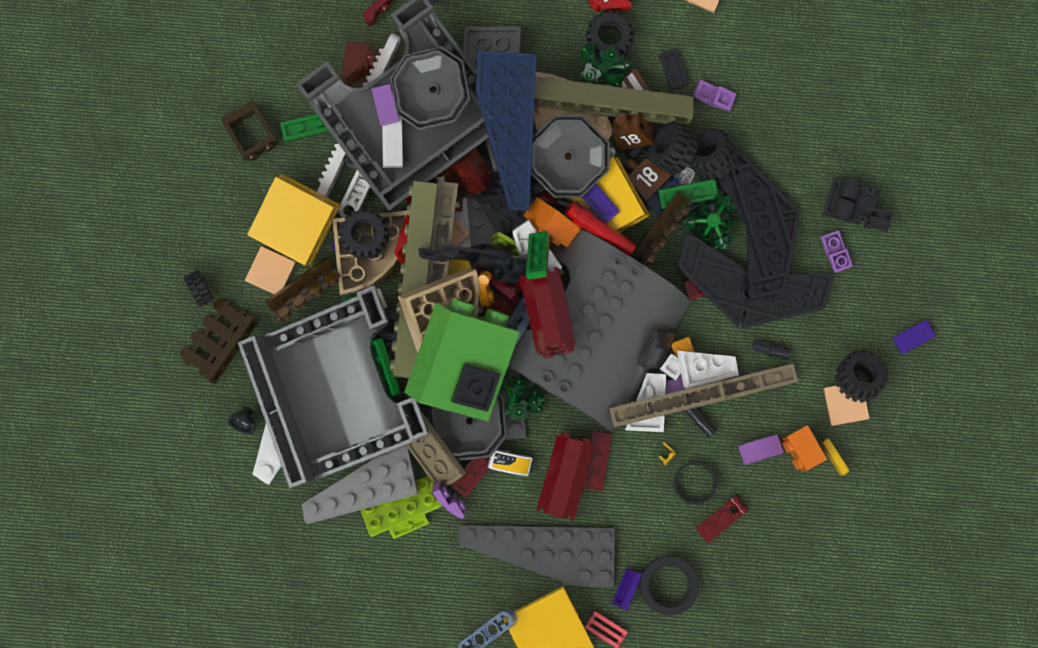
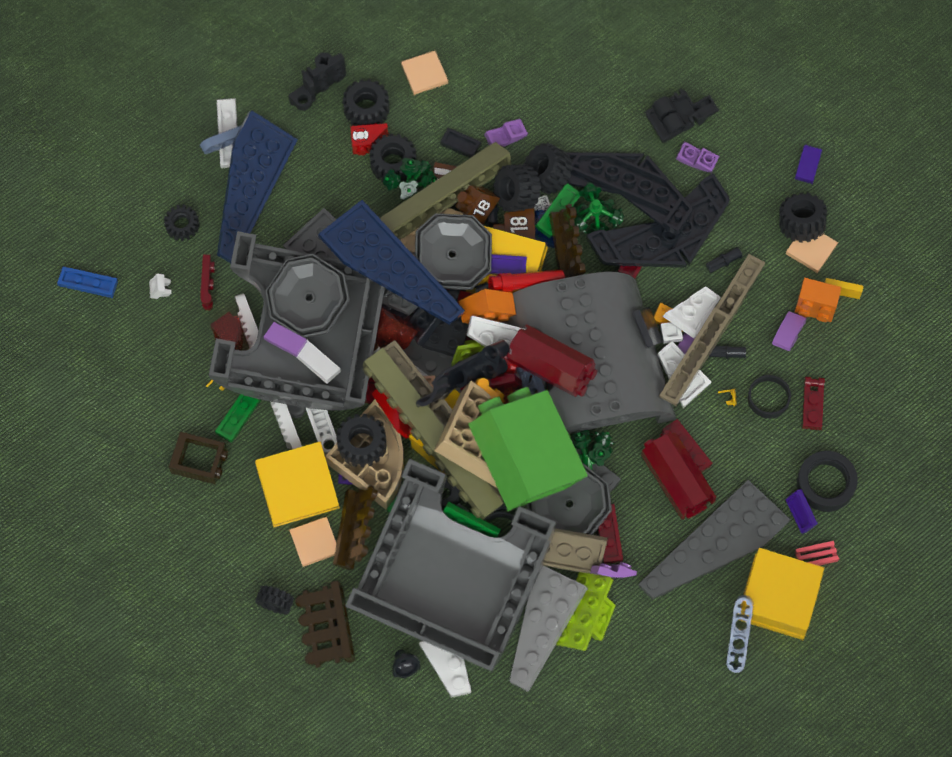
camera: 45 degrees left, 15 degrees down
(475, 387) = (557, 455): black tile -> none
(510, 462) = (628, 504): slope -> none
(537, 255) = (505, 327): green plate -> none

